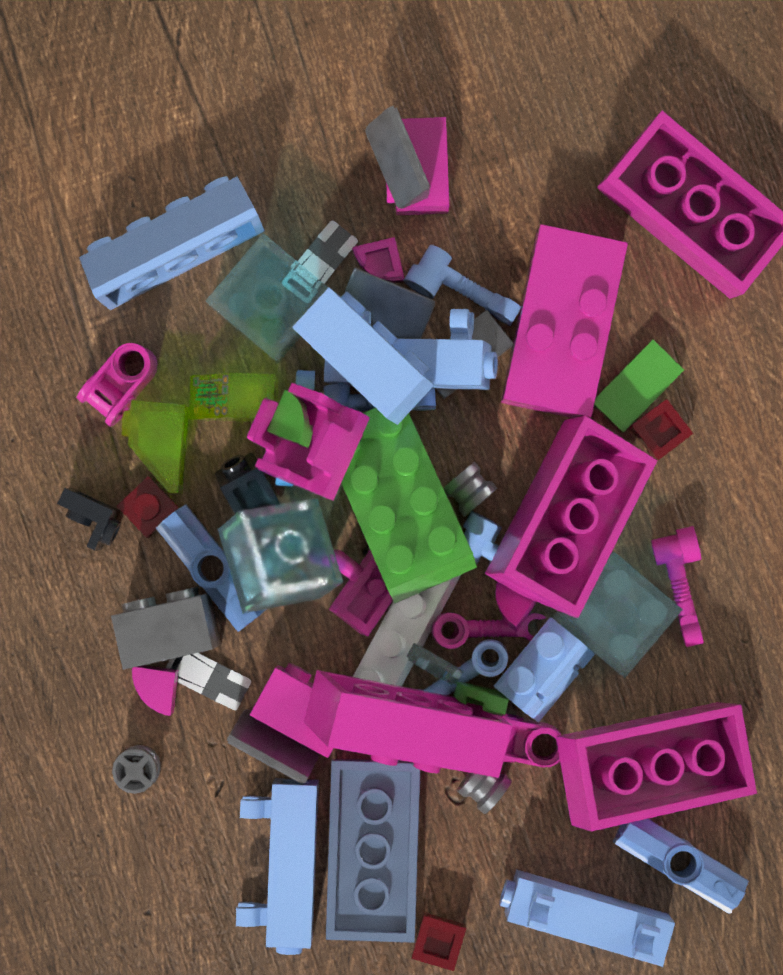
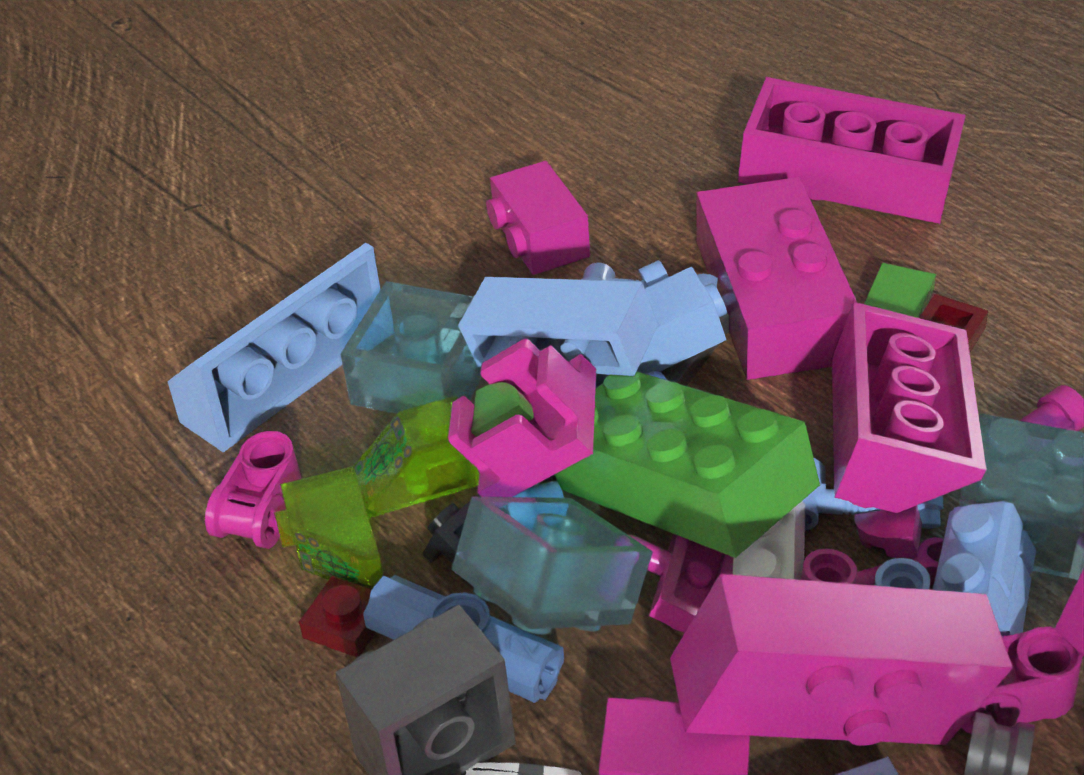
camera: 20 degrees left, 45 degrees down
(86, 509) = (265, 633): black bracket -> none
(397, 158) = (513, 185): flat silver slope -> none

